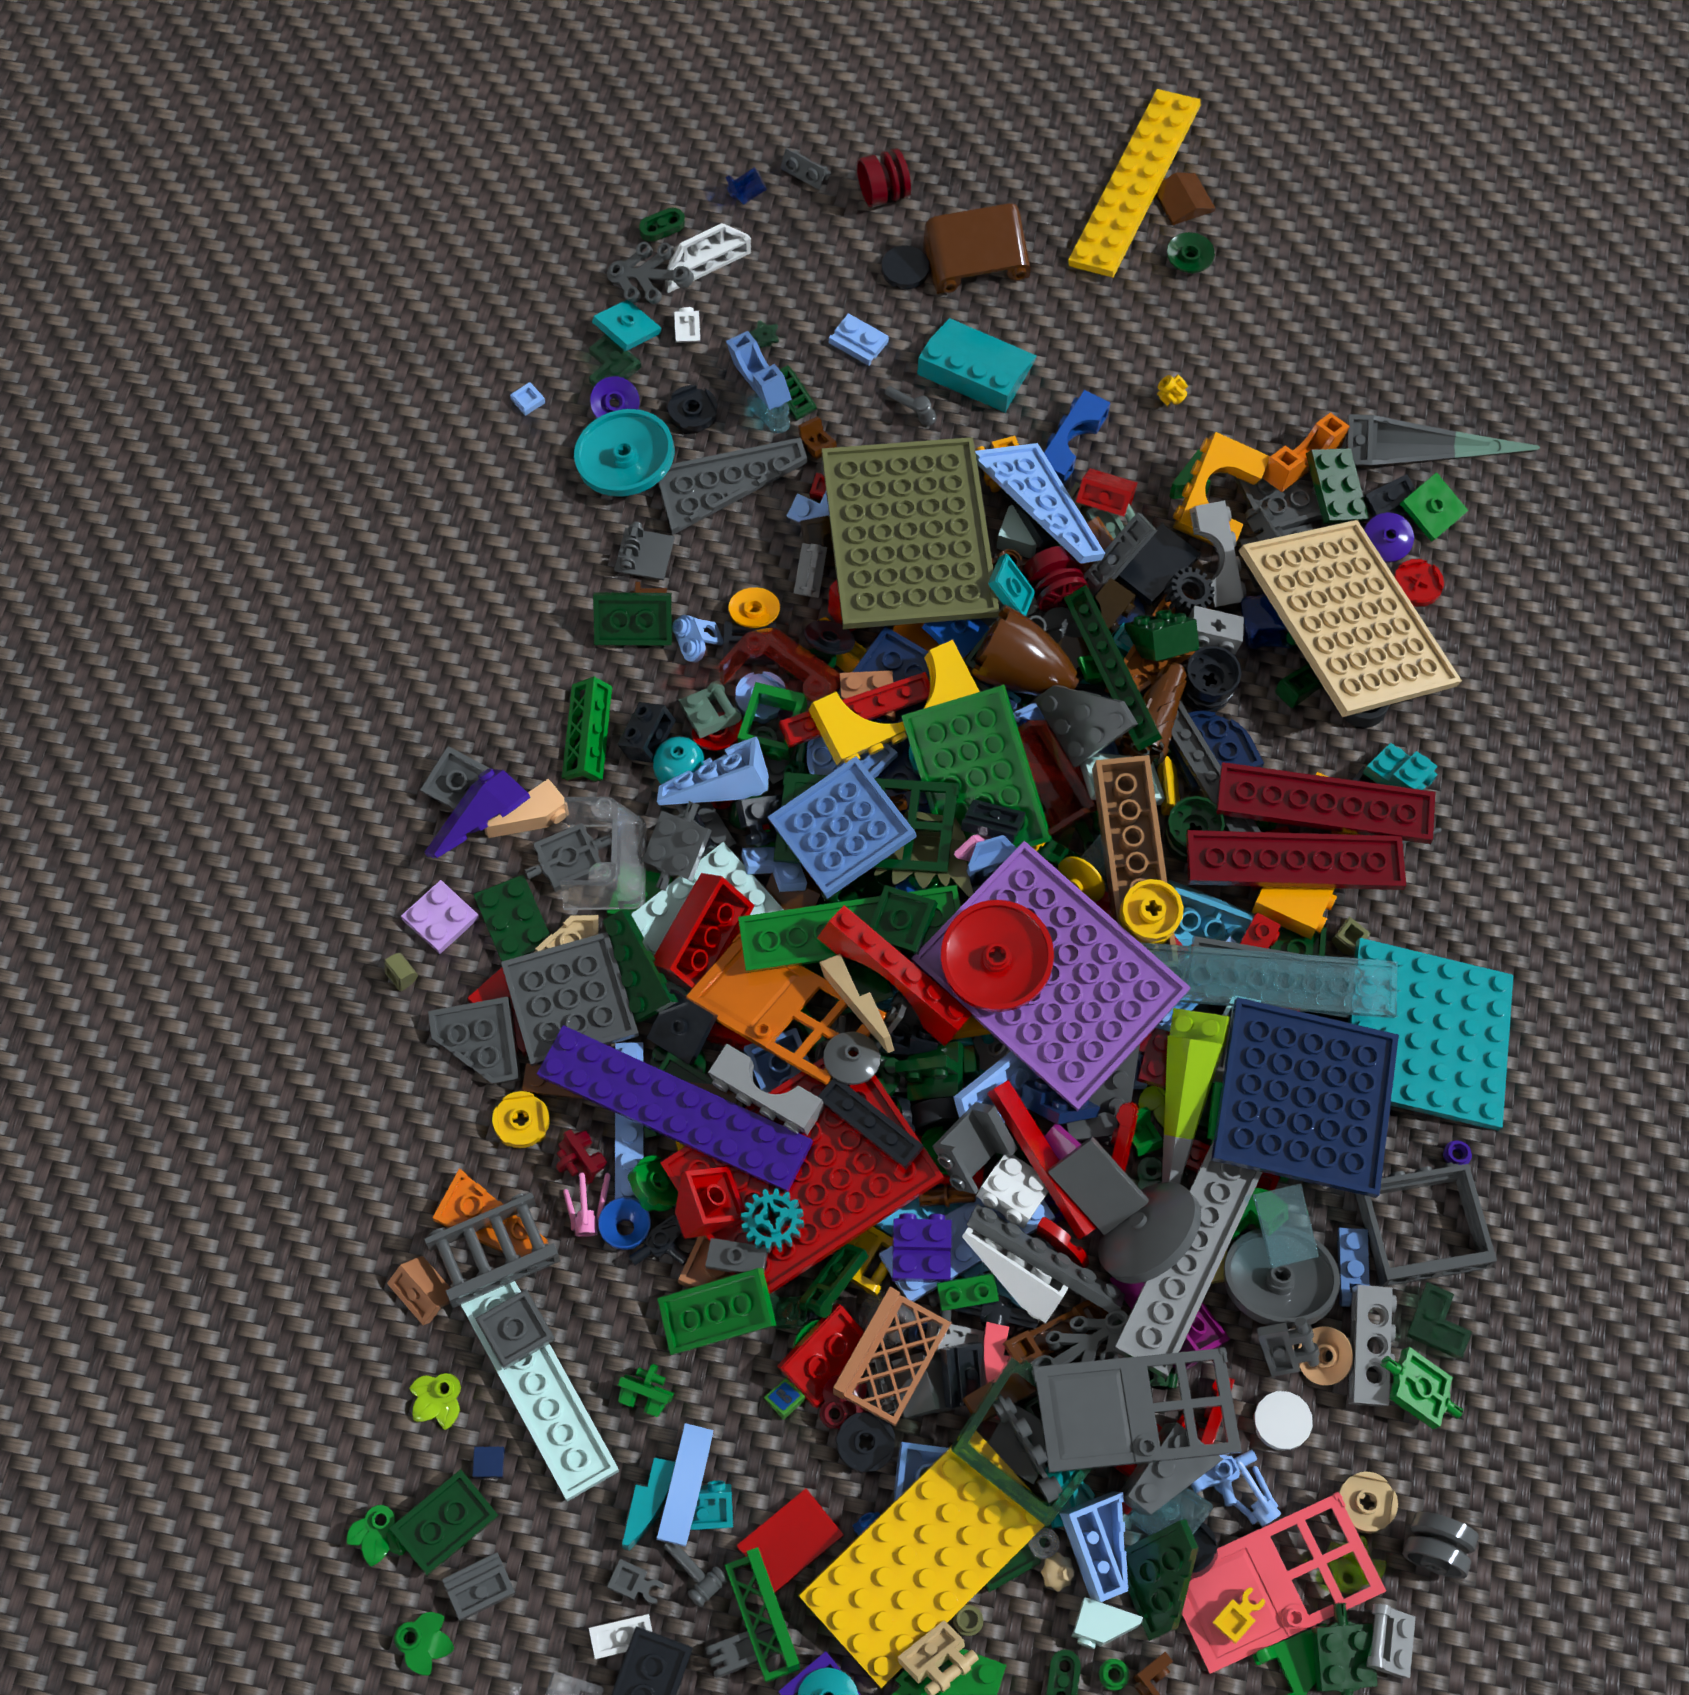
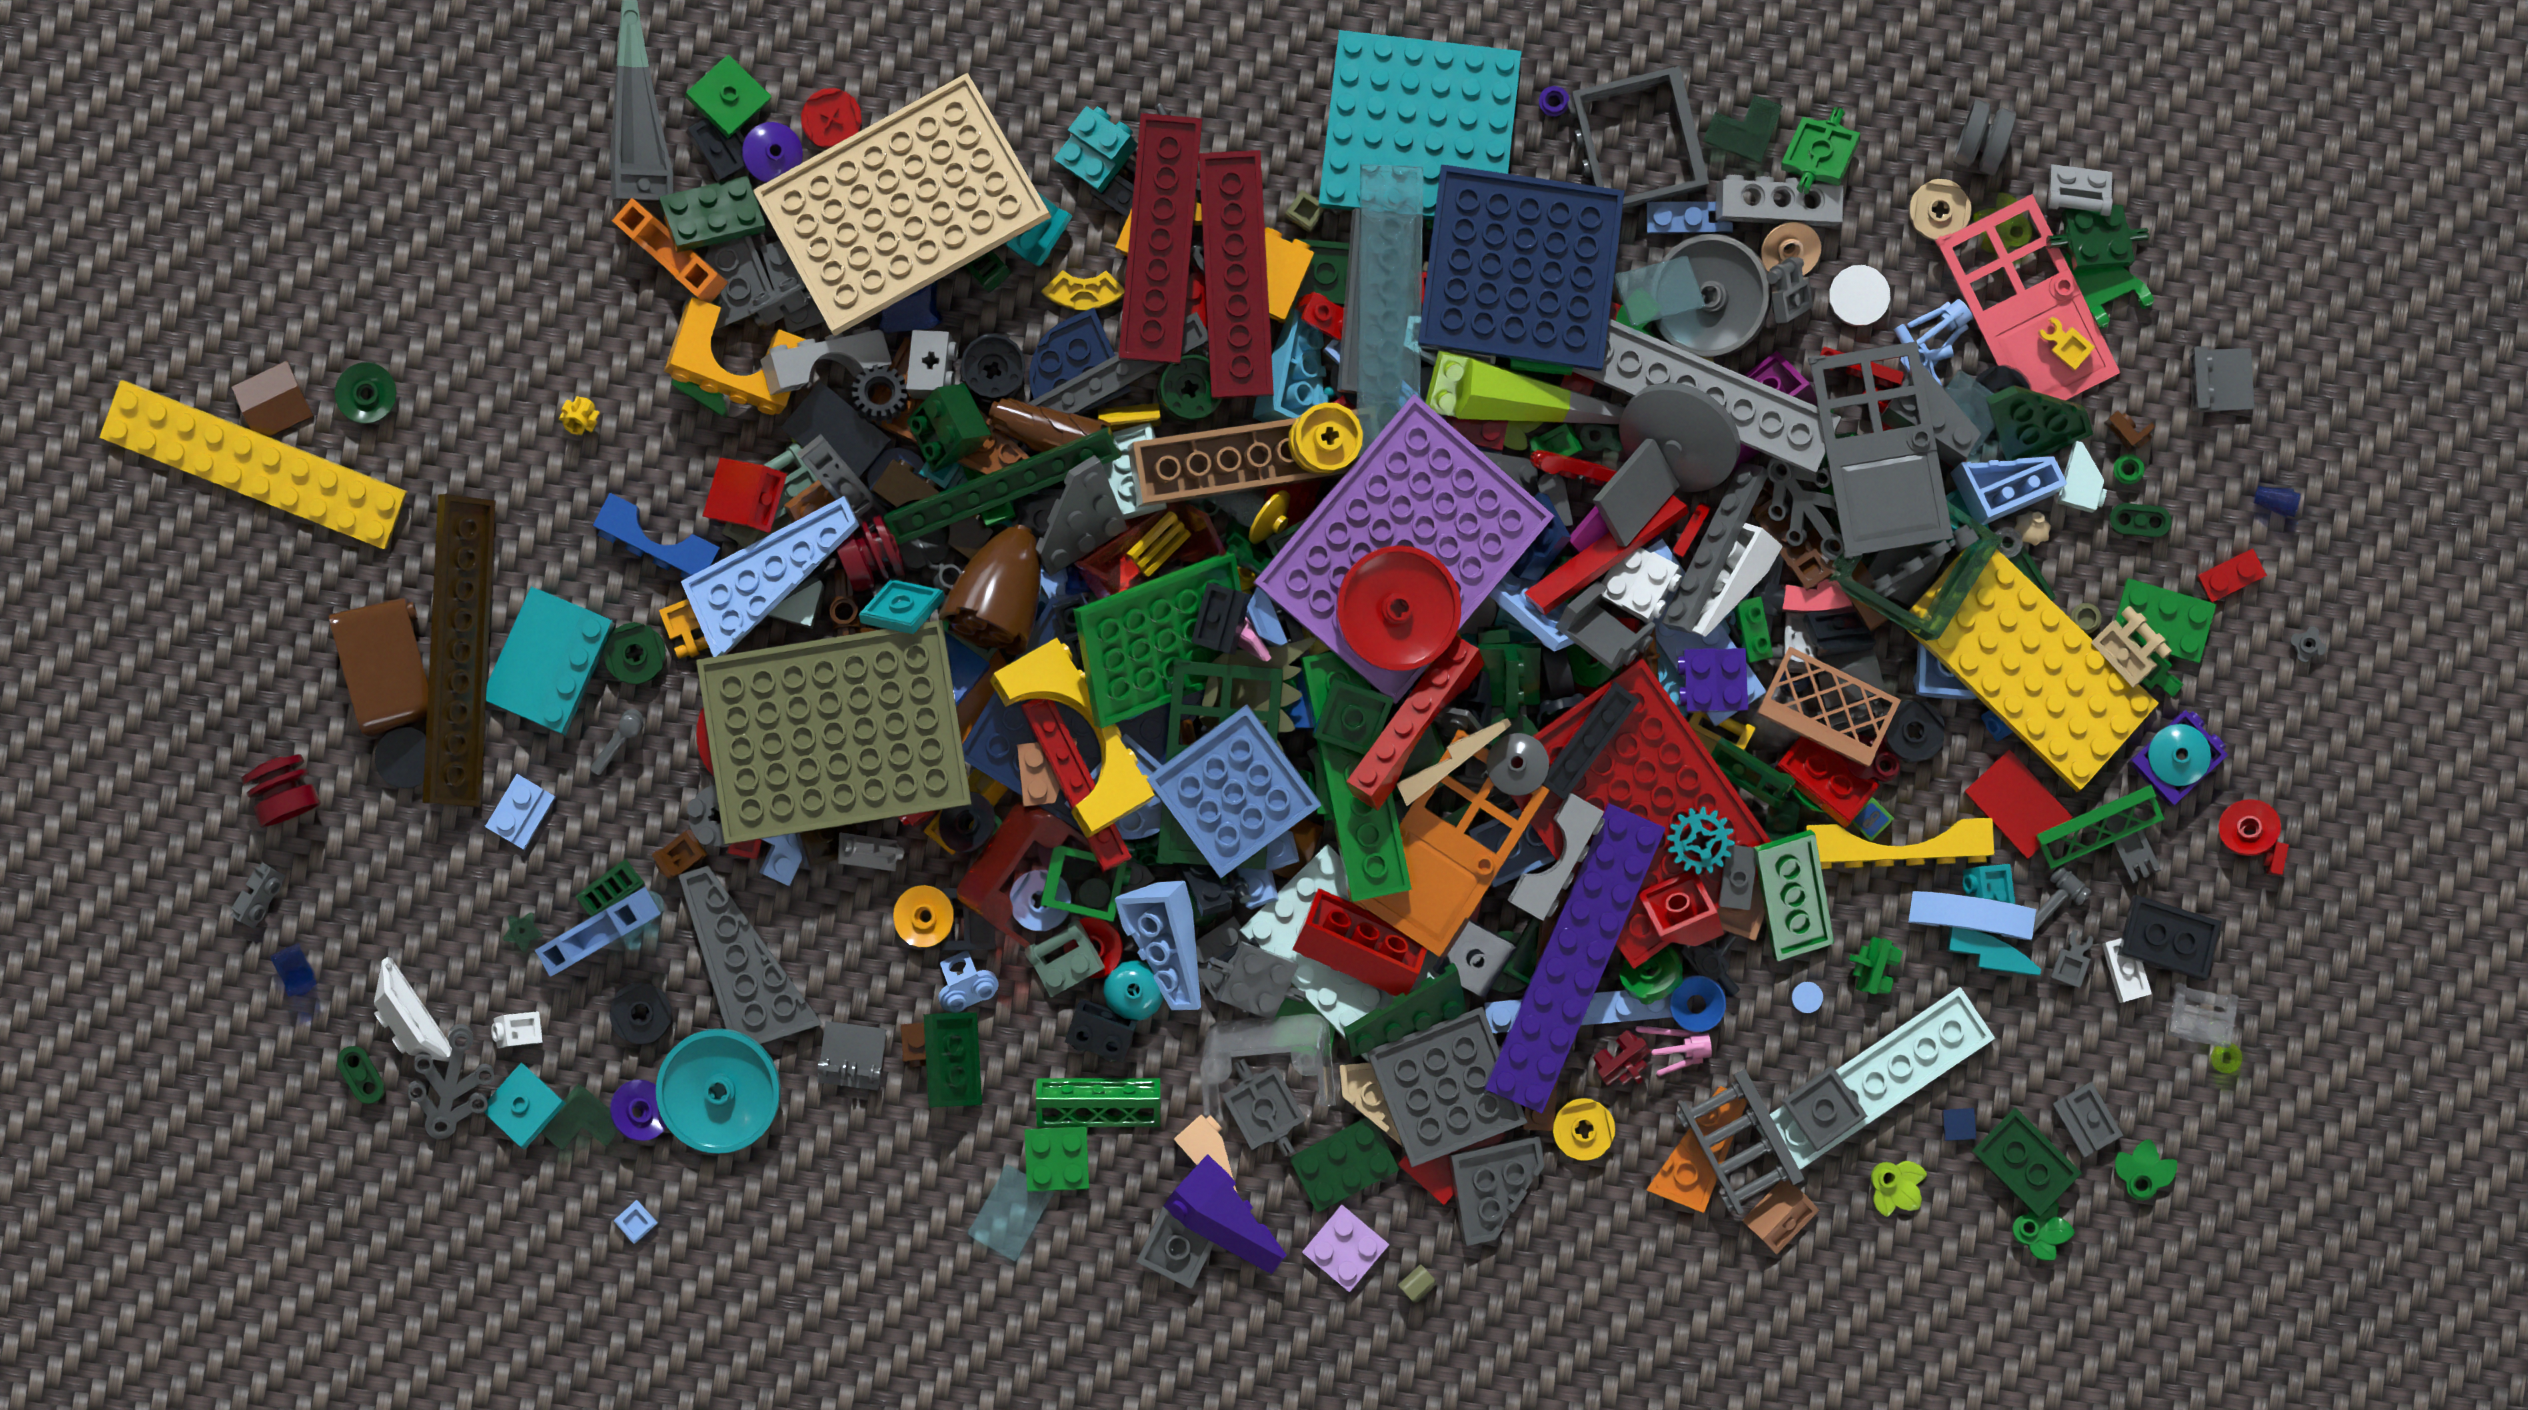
camera: 90 degrees left, 20 degrees up
(502, 663) = (1009, 1214): none -> clear light blue piece
(542, 696) = (1056, 1159): none -> green plate
(622, 1327) = (1807, 997): none -> light blue tile
(760, 1482) = (1964, 839): none -> yellow arch
(981, 432) = (650, 662): none -> dark green plate
(987, 298) = (459, 651): none -> dark brown plate
(1051, 796) = (1162, 547): none -> yellow tile
(1277, 751) = (1084, 293): none -> yellow tile
(1326, 721) = (1038, 241): none -> teal bracket

